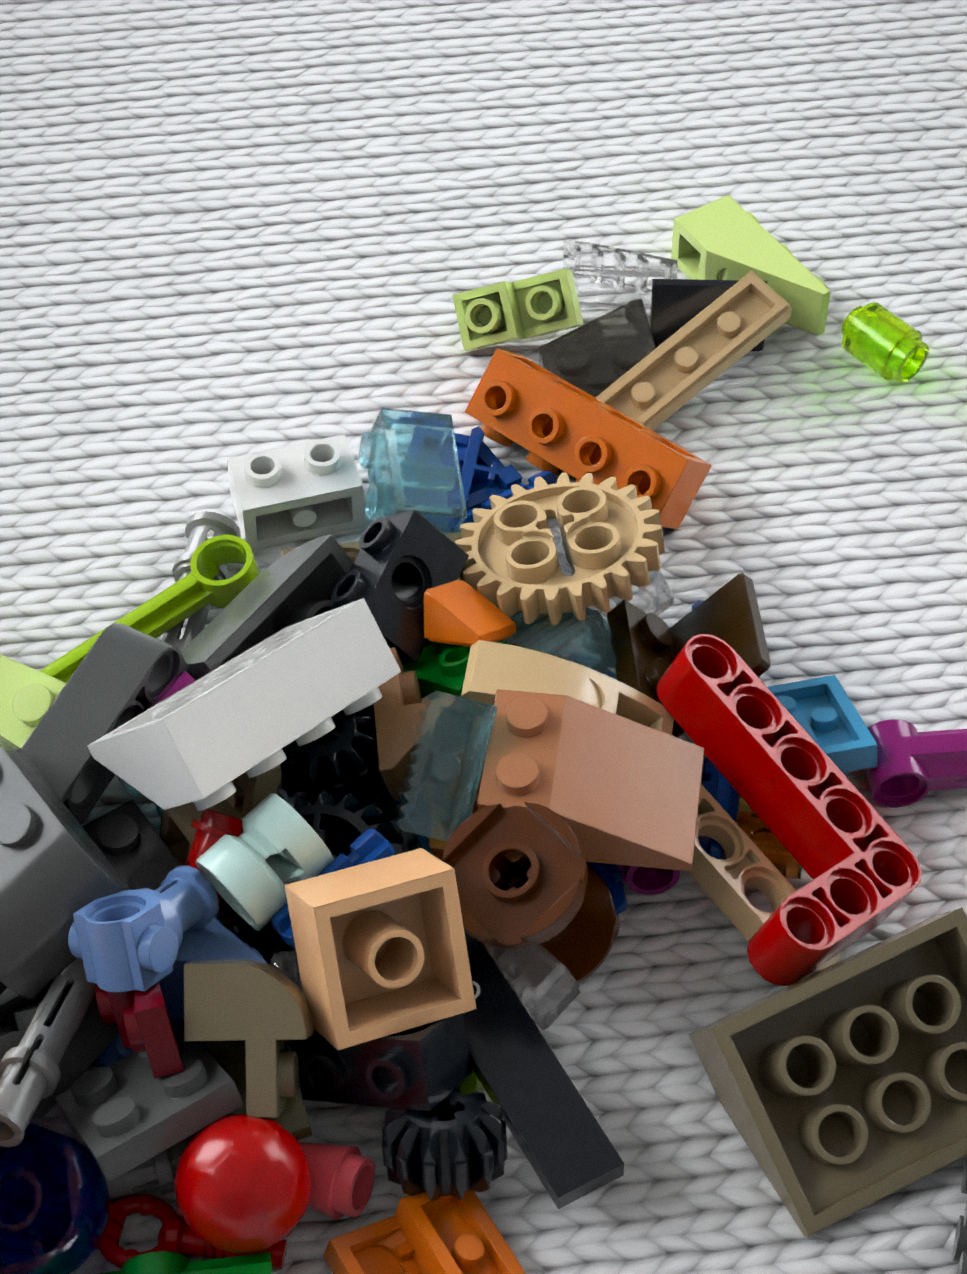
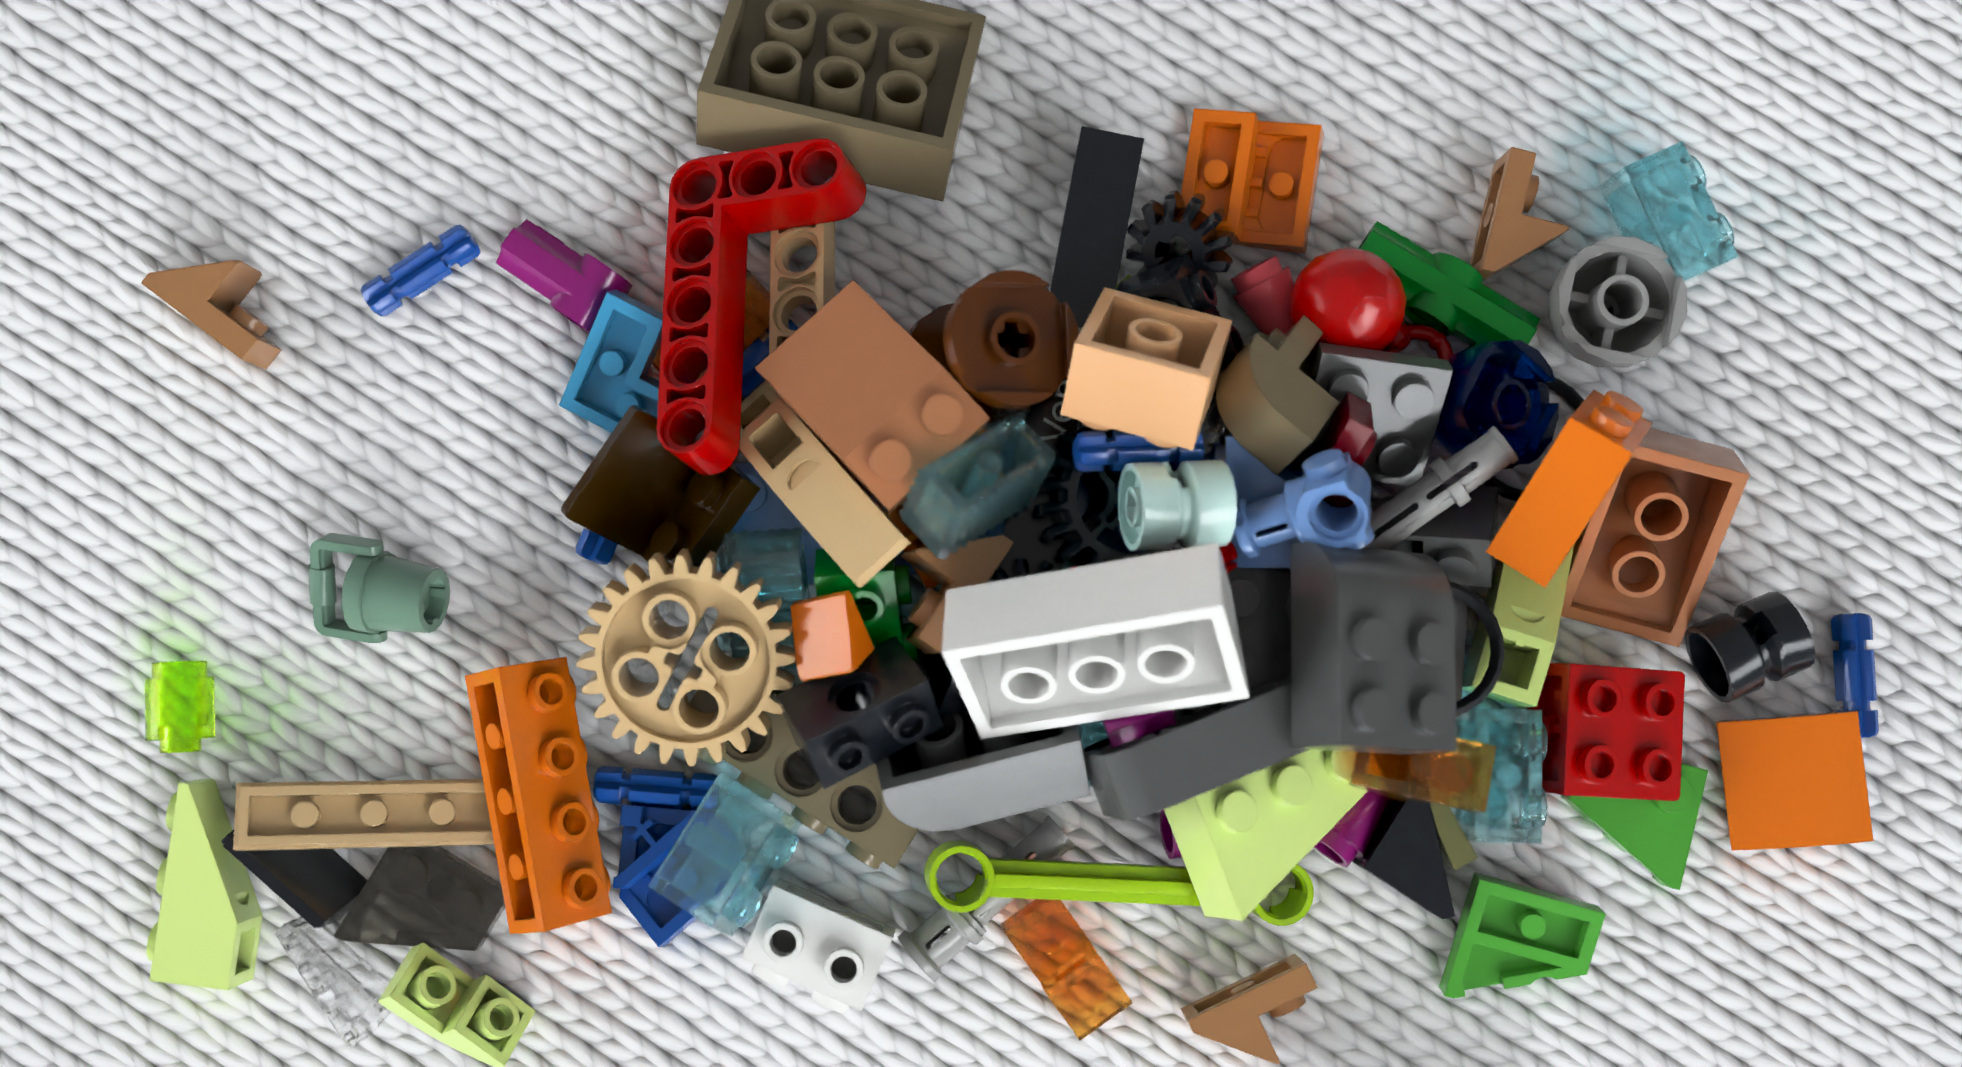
camera: 145 degrees left, 35 degrees up
(79, 599) = (1066, 965): none -> clear orange slope
(829, 480) = (377, 592): none -> sand green piece

